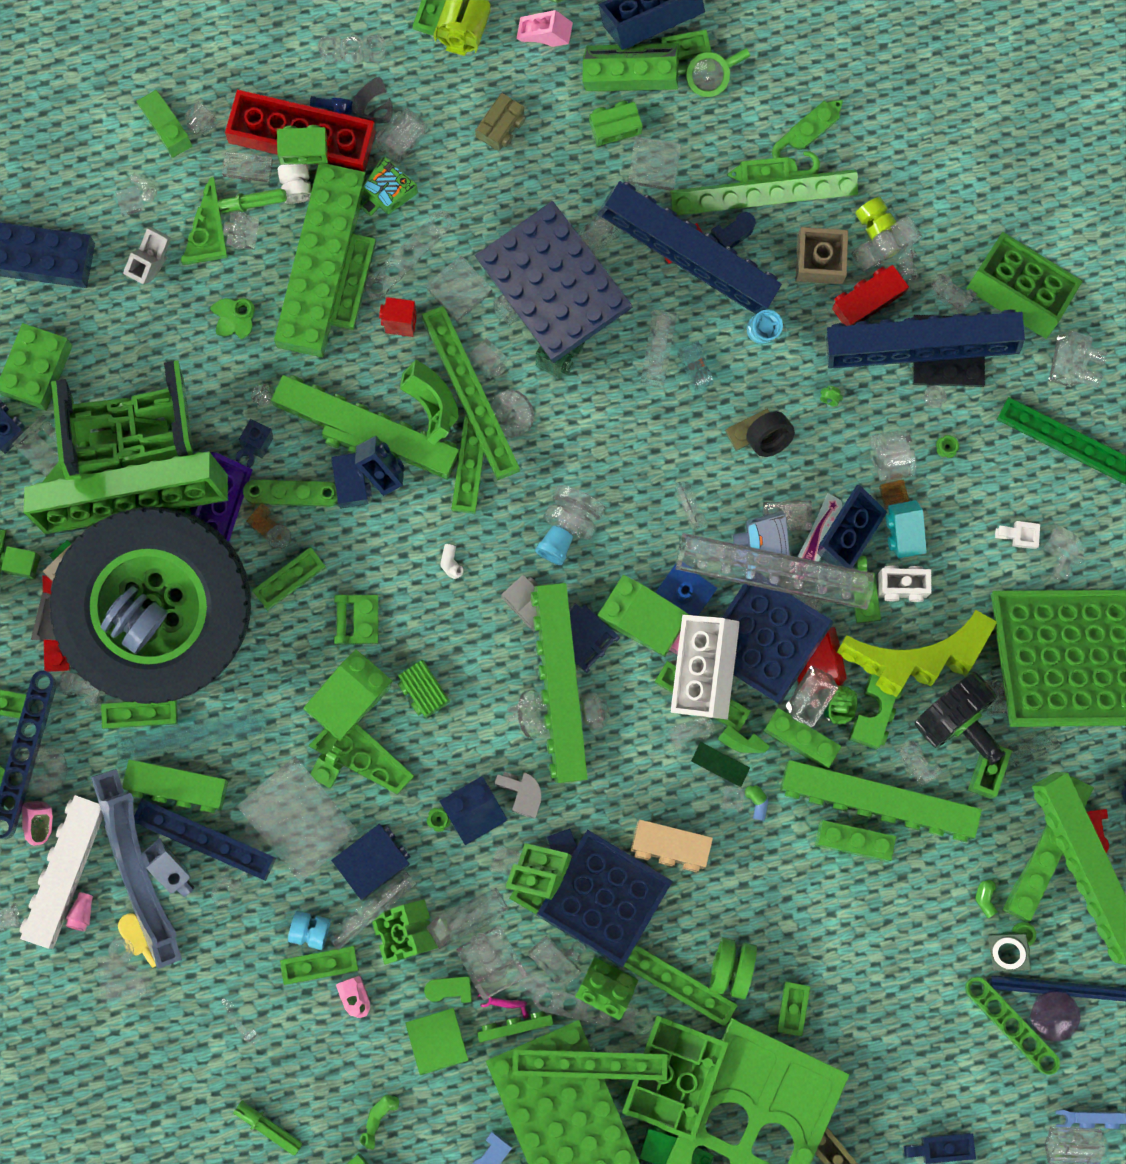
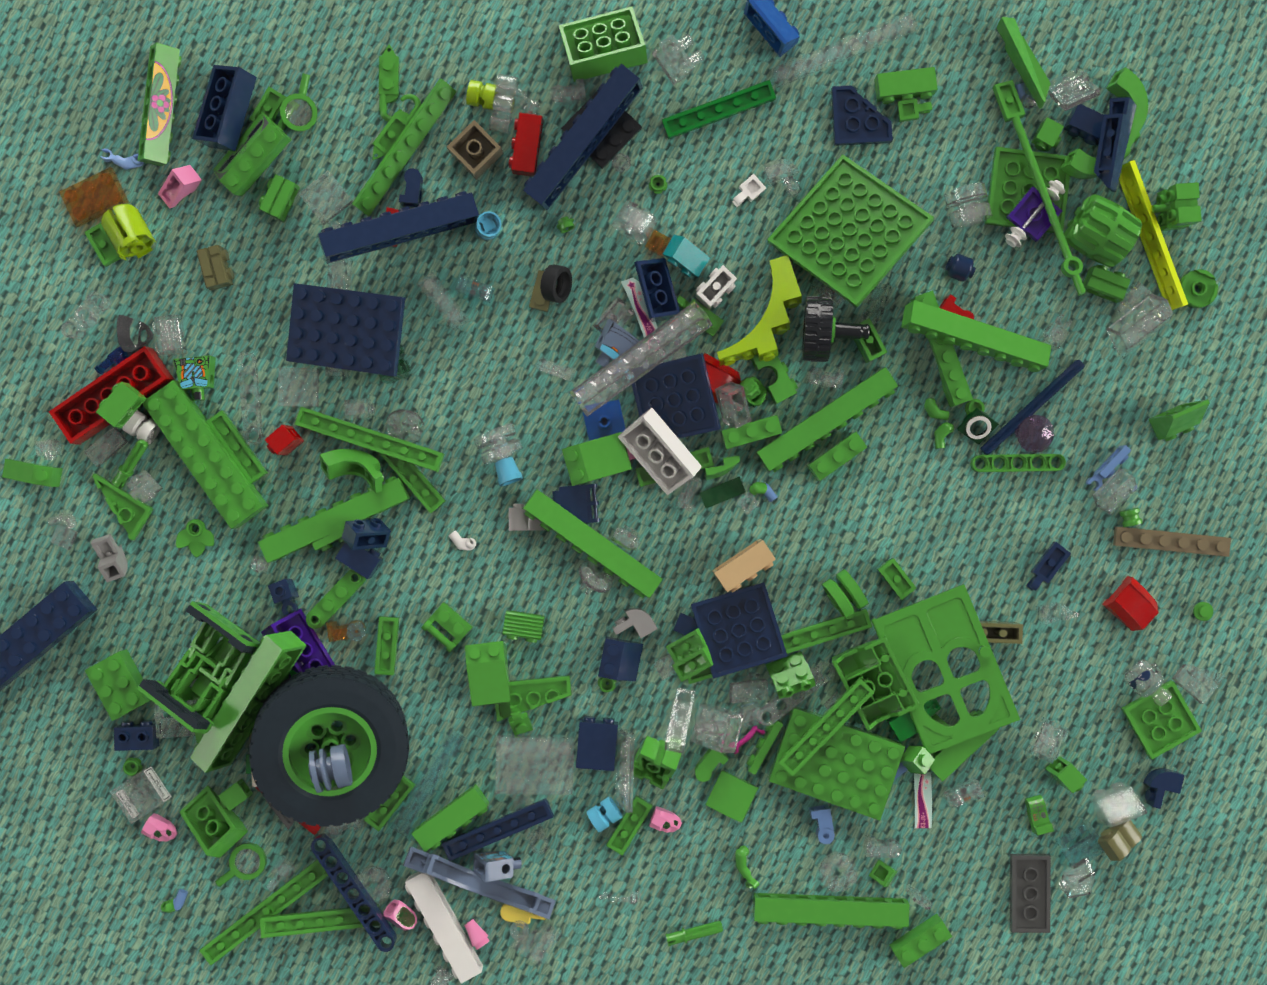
camera: 40 degrees left, 10 degrees up
(970, 923) = (941, 432): none -> bright green arm

